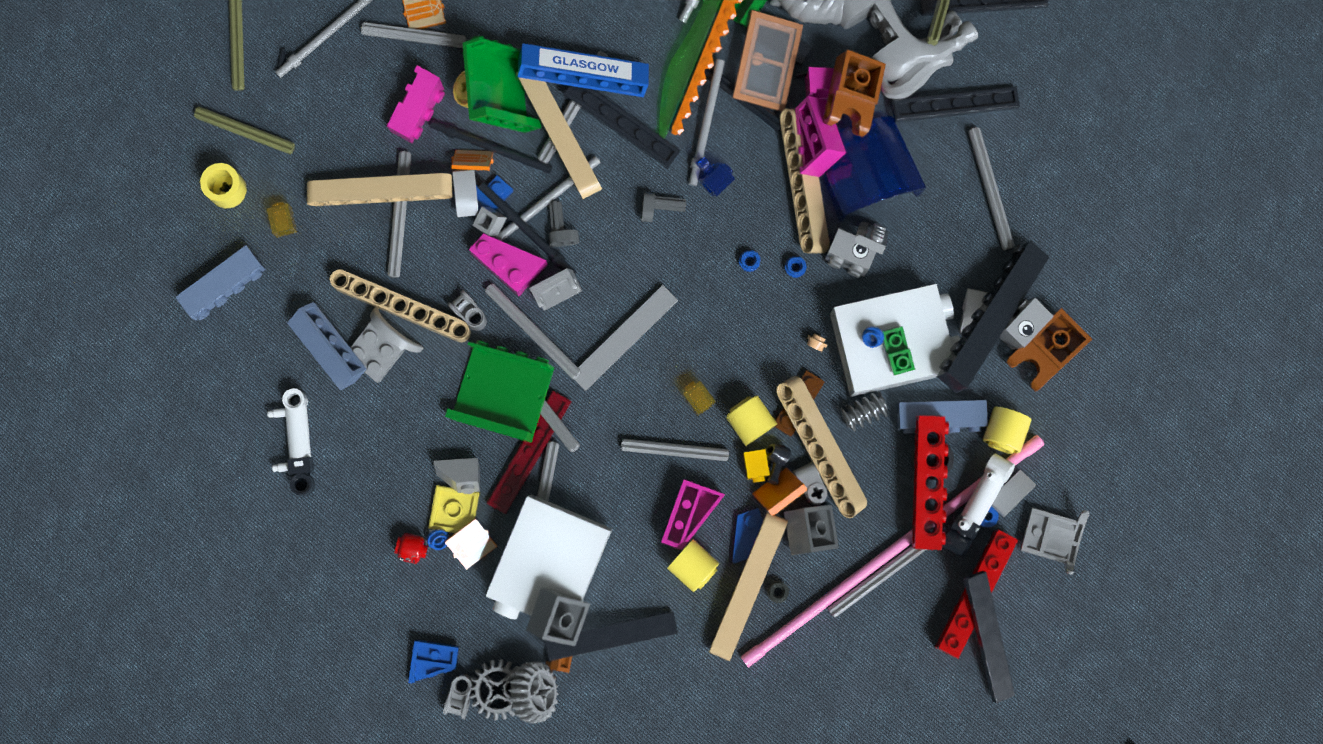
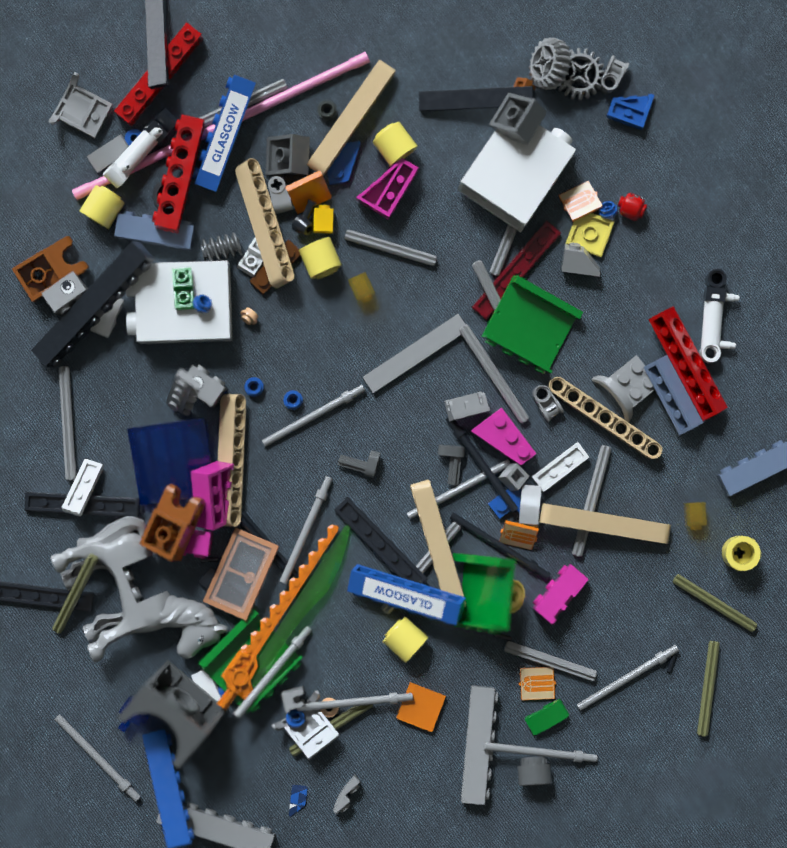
camera: 170 degrees left, 5 degrees up
(317, 383) = (688, 363): none -> red brick
(440, 244) = (560, 466): none -> white plate
(575, 25) = (404, 639): none -> light yellow piece
(692, 274) = (346, 397): none -> light grey bar
(715, 177) = (308, 478): clear blue brick -> none
(827, 405) = (251, 260): none -> white slope
(887, 540) = (224, 132): none -> brick
(959, 119) = (82, 487): none -> white plate

